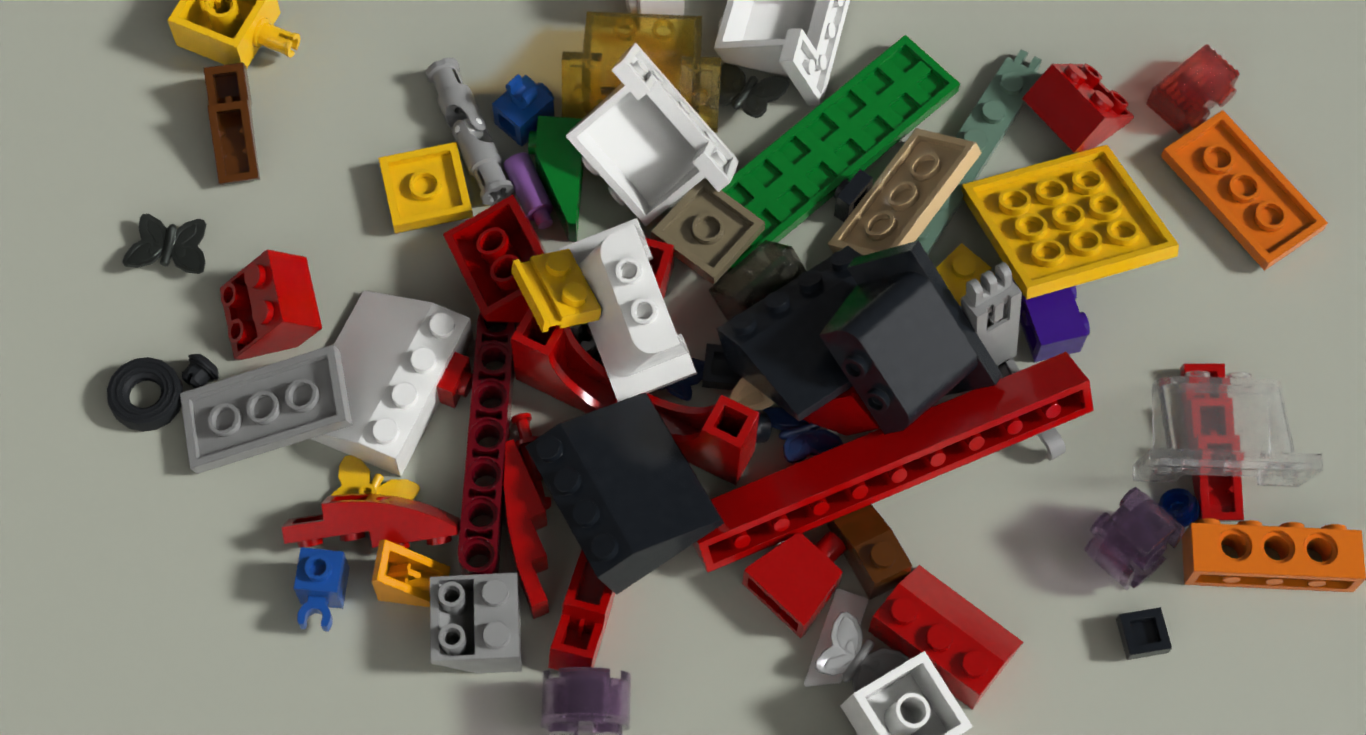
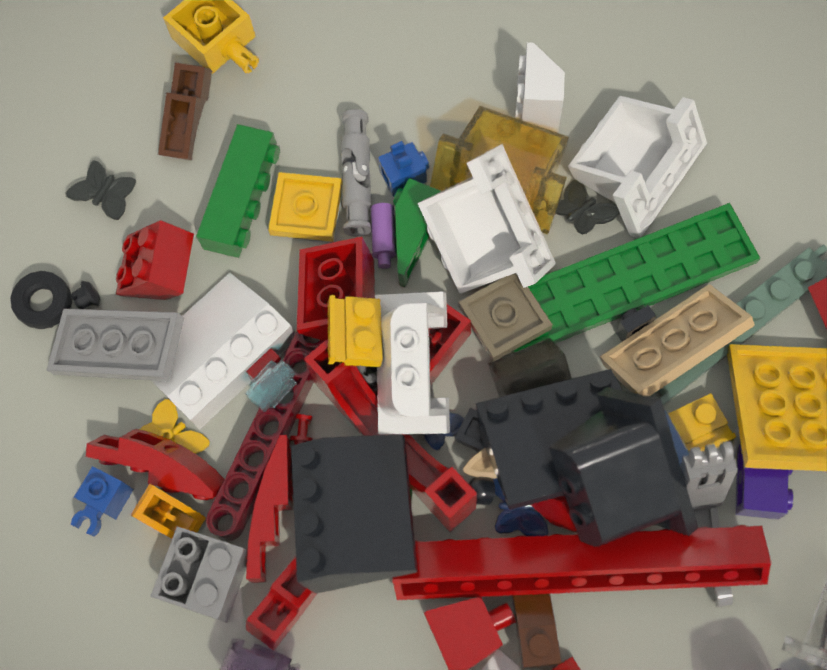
camera: 30 degrees right, 5 degrees up
(337, 194) = (238, 191): none -> green brick
(476, 387) = (271, 385): none -> clear light blue brick

